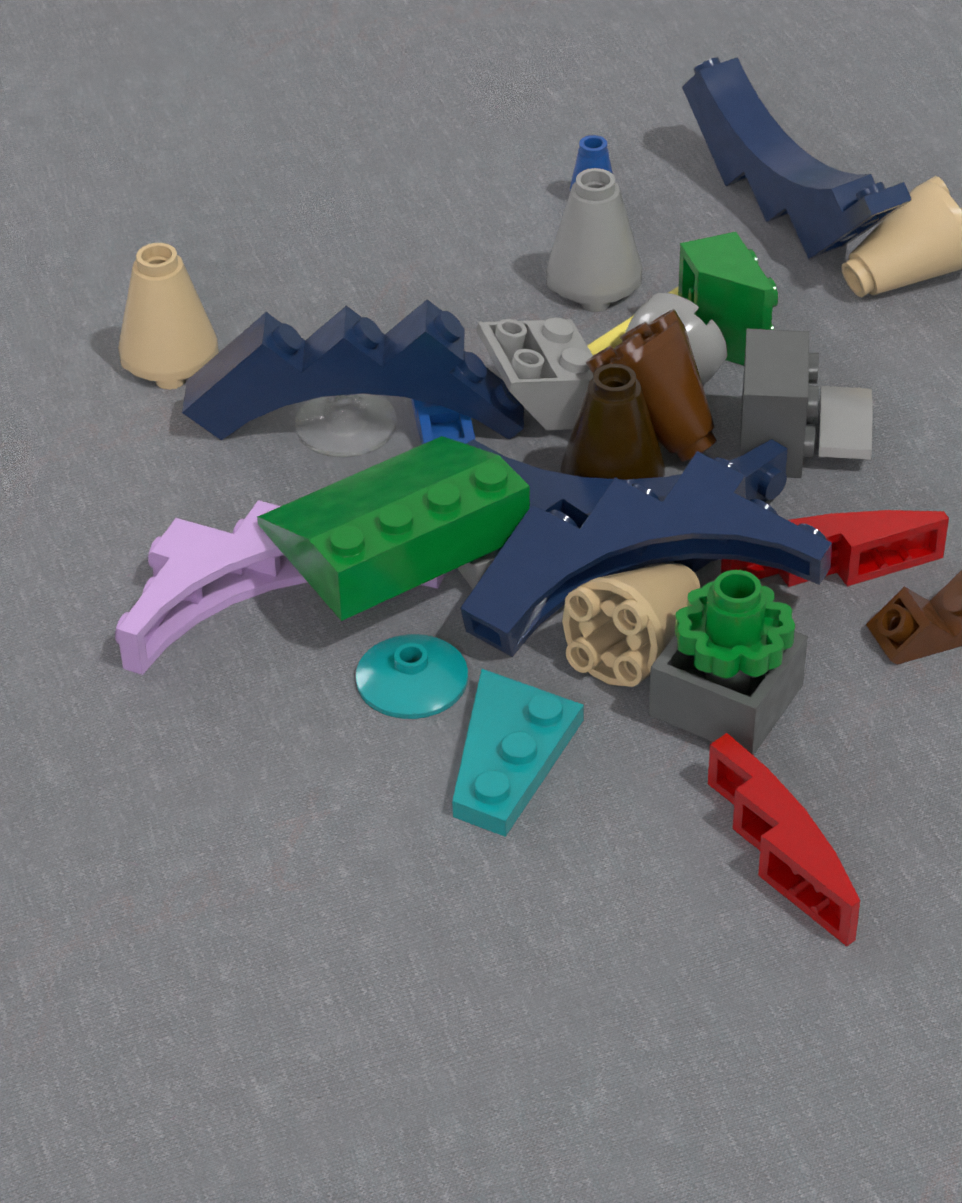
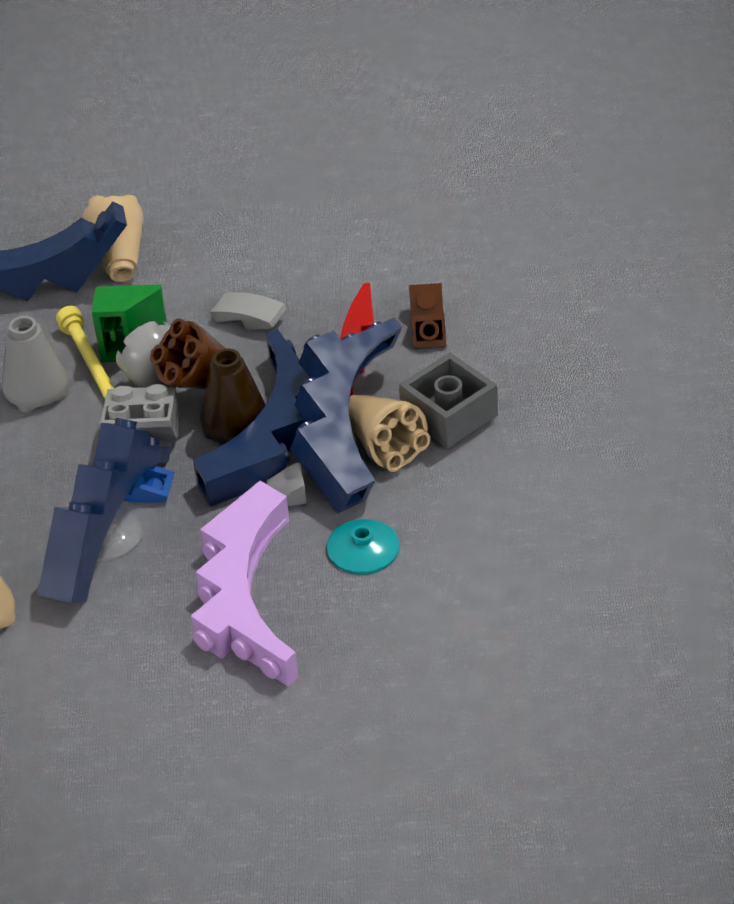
camera: 70 degrees left, 0 degrees up
(399, 523) = (261, 501): green slope -> none
(510, 749) = (448, 509): teal wing -> none
(734, 626) = (443, 369): green plant -> none
(778, 394) = (236, 319): dark grey brick -> none
(791, 846) = (578, 410): red slope -> none

